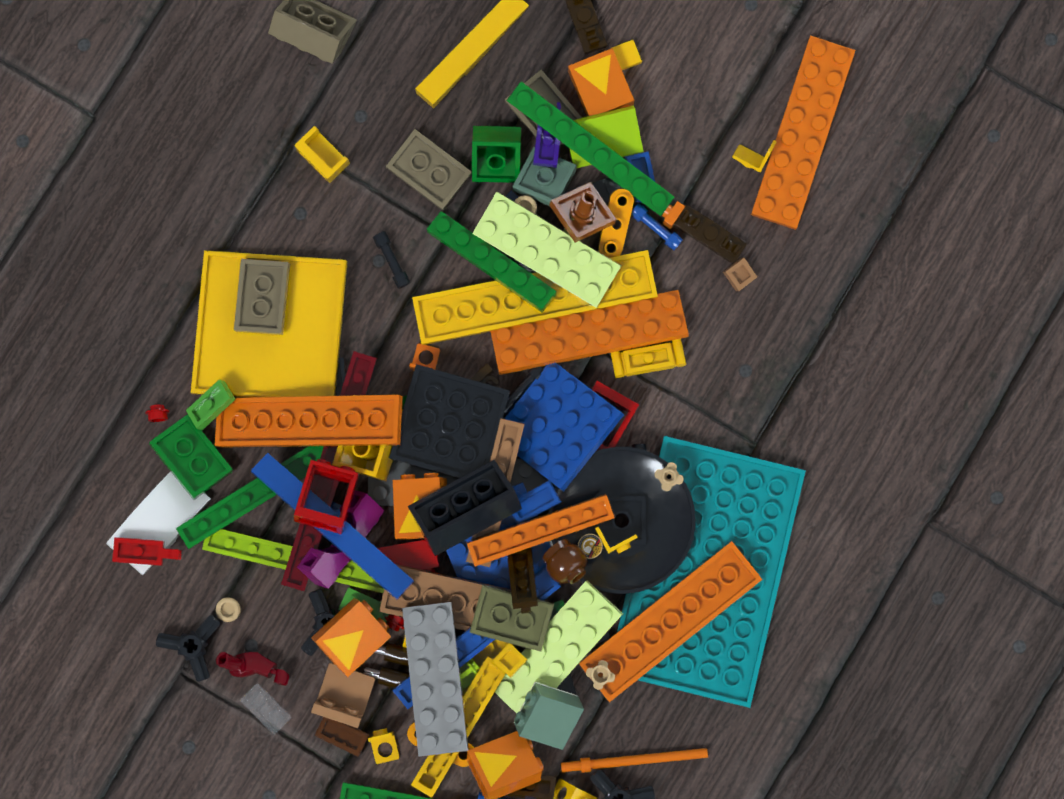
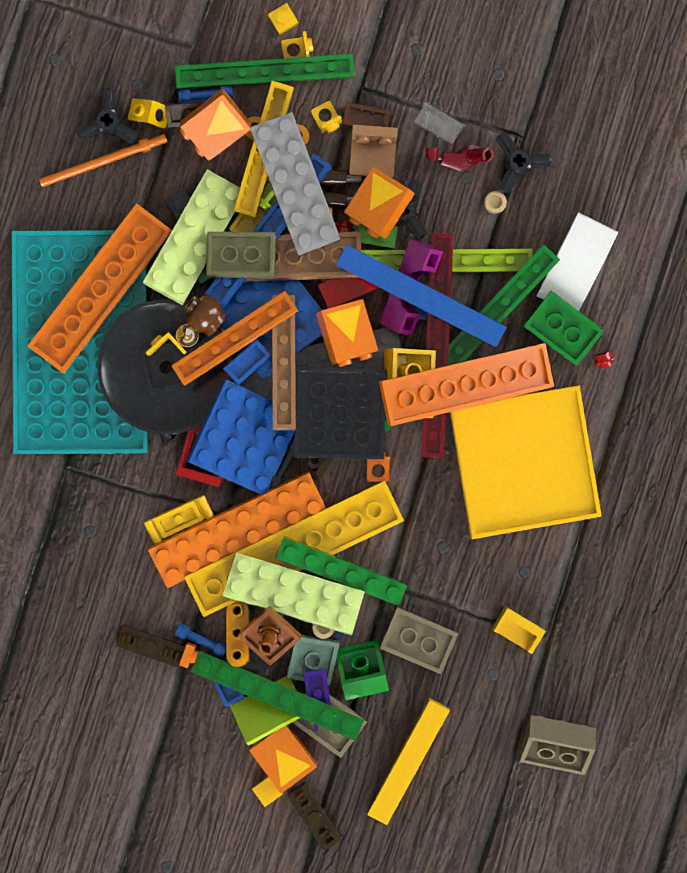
camera: 170 degrees right, 5 degrees up
(142, 551) = (583, 231): red plate -> none
(210, 404) = (558, 378): bright green plate -> none
(262, 296) = (538, 486): dark tan plate -> none
(320, 519) = (433, 296): red window -> none
(382, 241) = (418, 535): black bar -> none
(465, 507) = (306, 340): black slope -> none
(510, 660) = (233, 217): yellow plate -> none
(522, 580) = (238, 288): dark brown plate -> none
(548, 715) = (187, 178): sand green piece -> none
(602, 667) = (149, 218): tan plate -> none
(669, 470) = (132, 421): tan plate -> none
(740, 274) = (115, 616): medium nougat plate -> none
(750, 158) = (130, 724): yellow bracket -> none
(803, 132) = (90, 760): orange plate -> none

